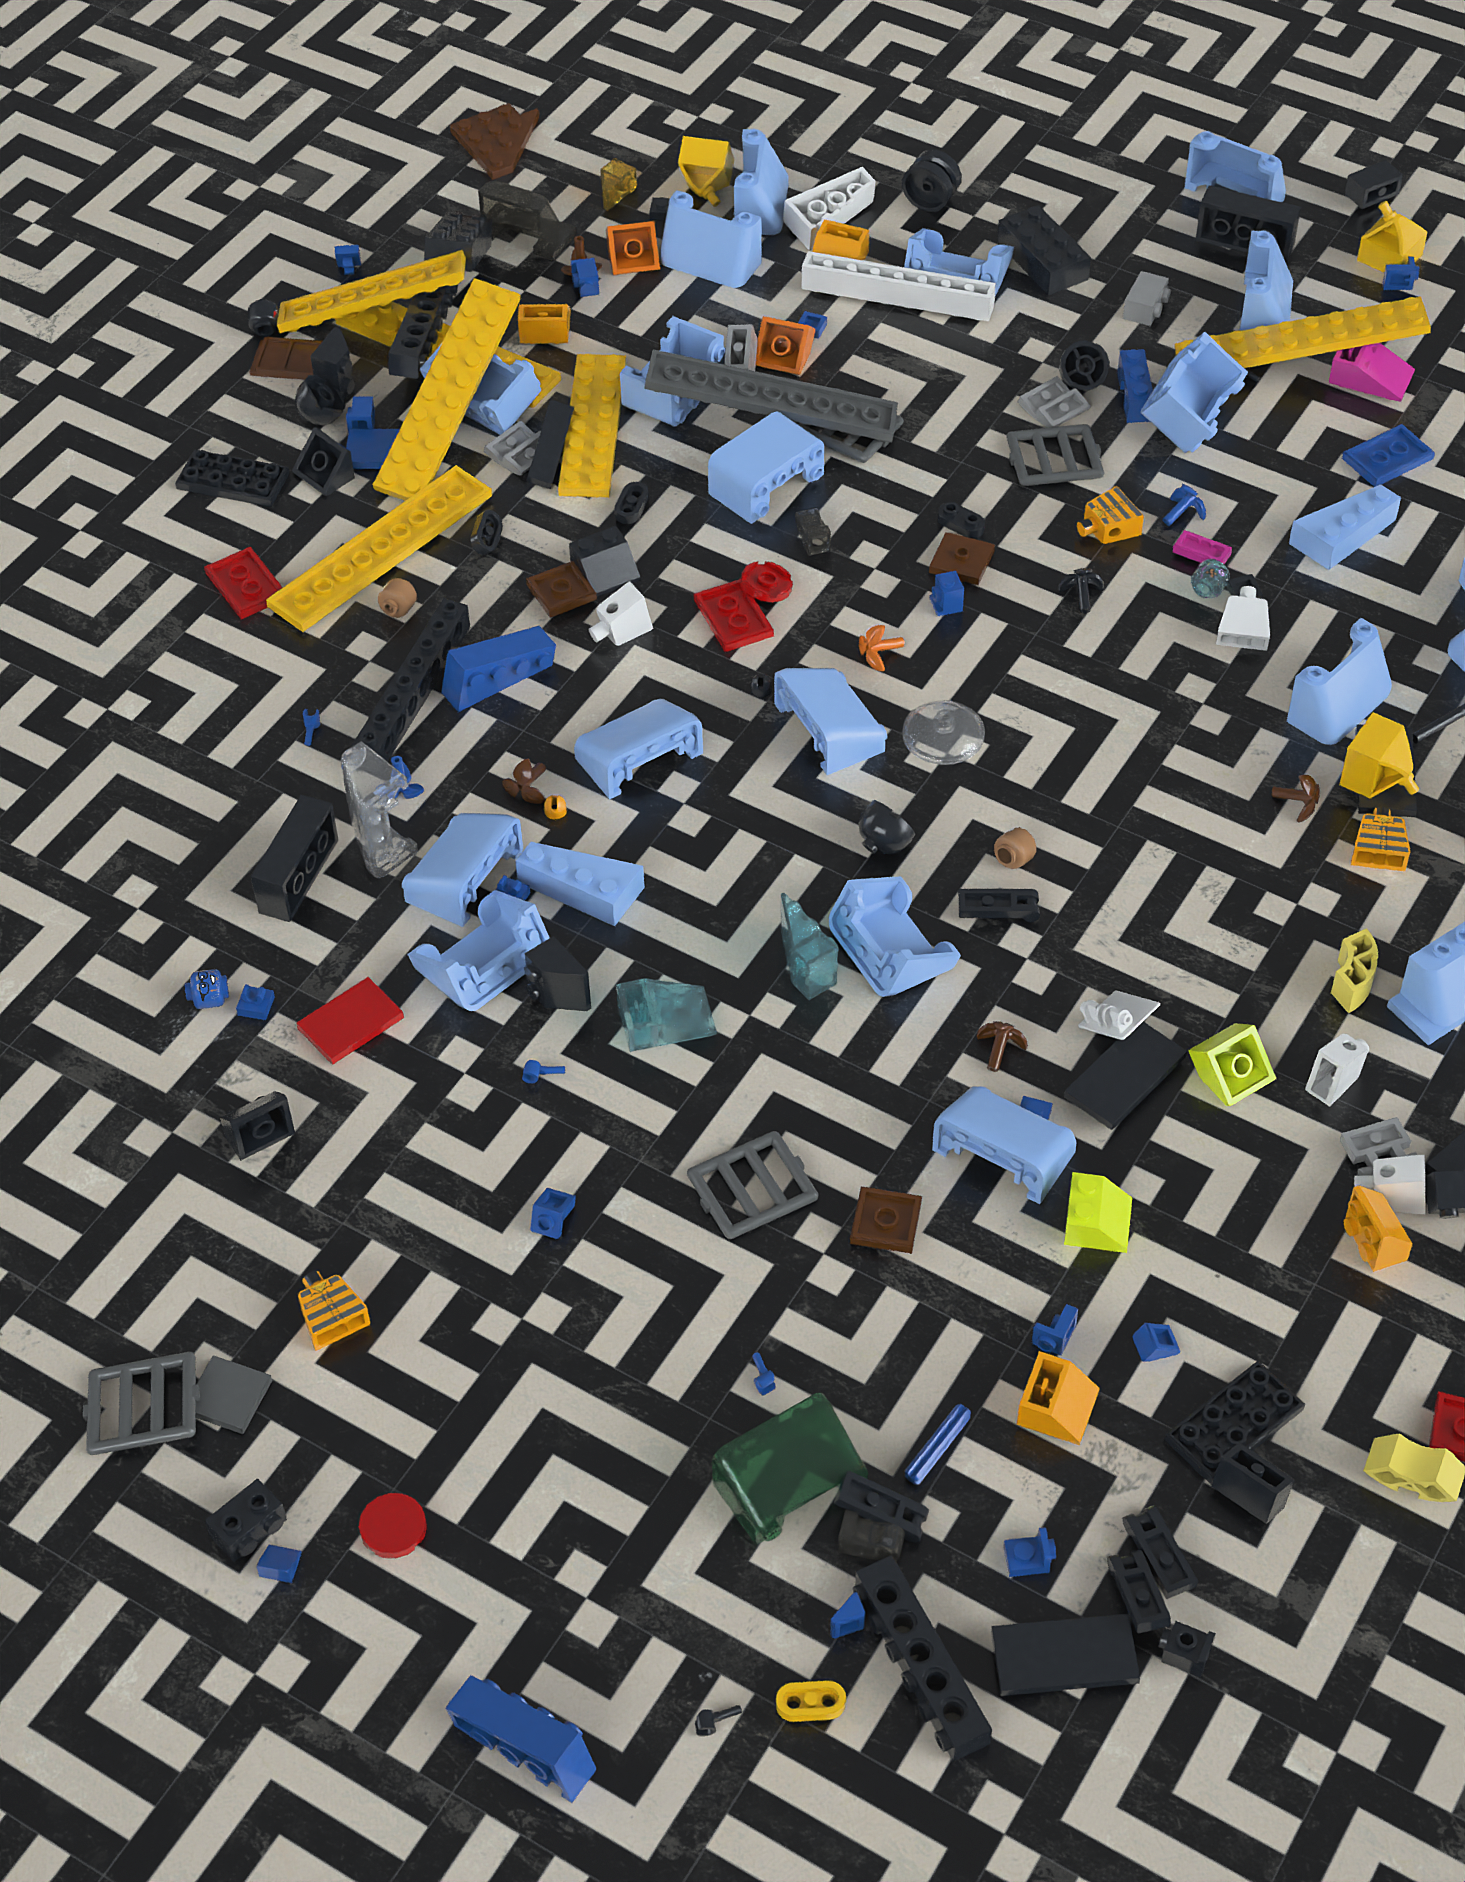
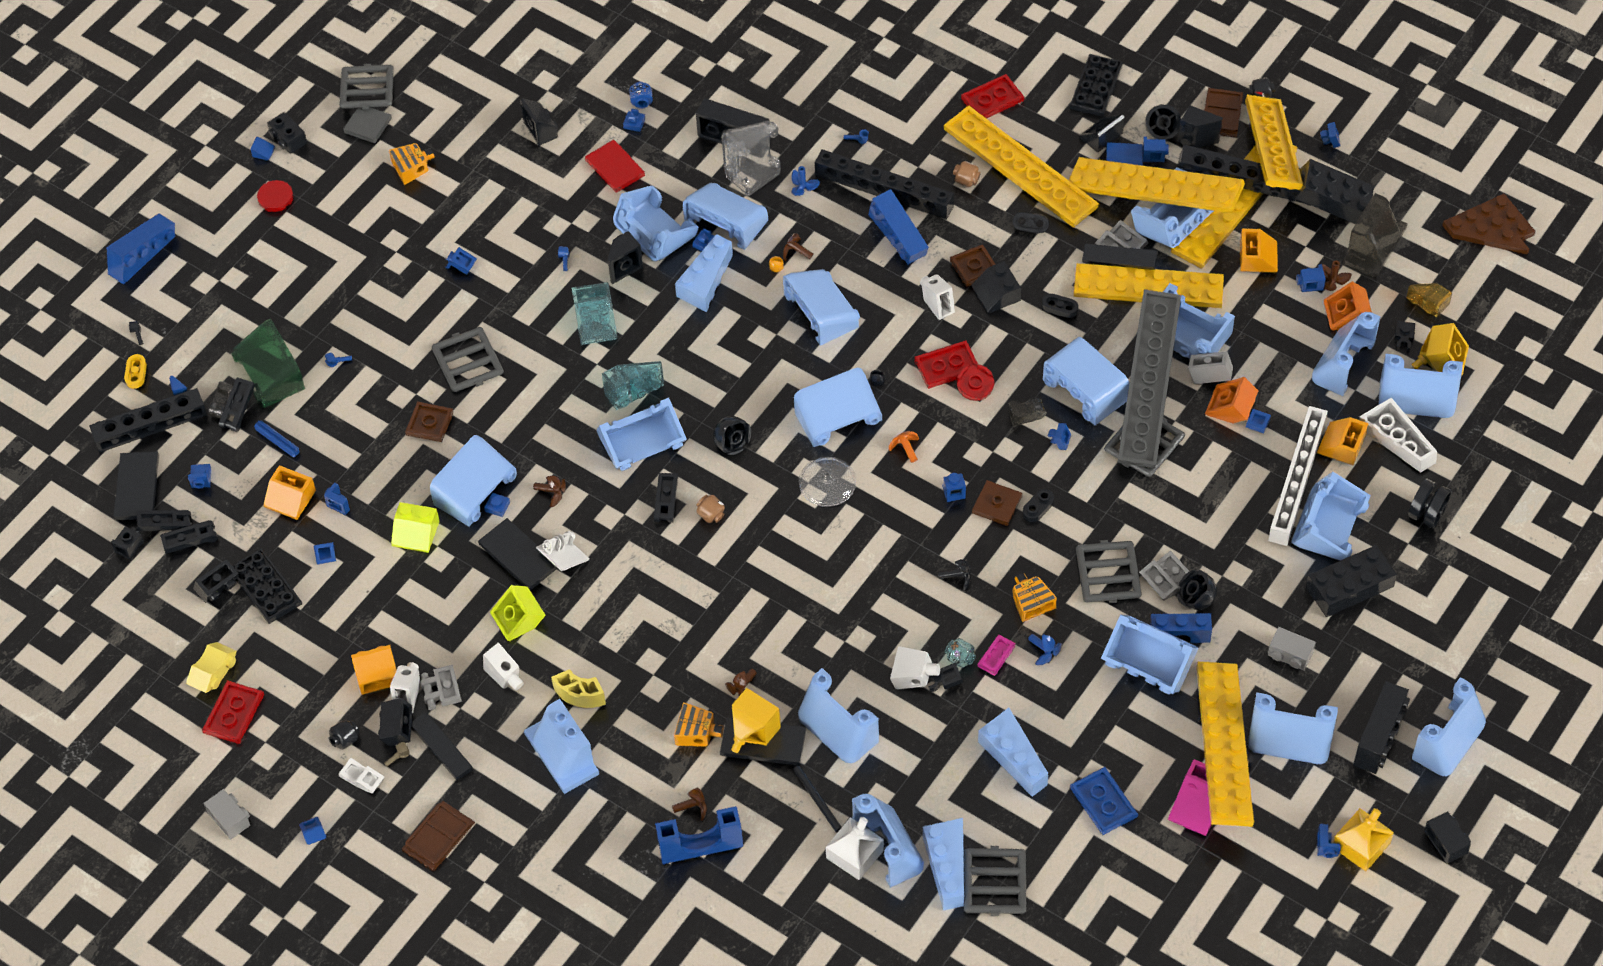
camera: 95 degrees right, 5 degrees up
(853, 495) = (1060, 436): none -> blue tile

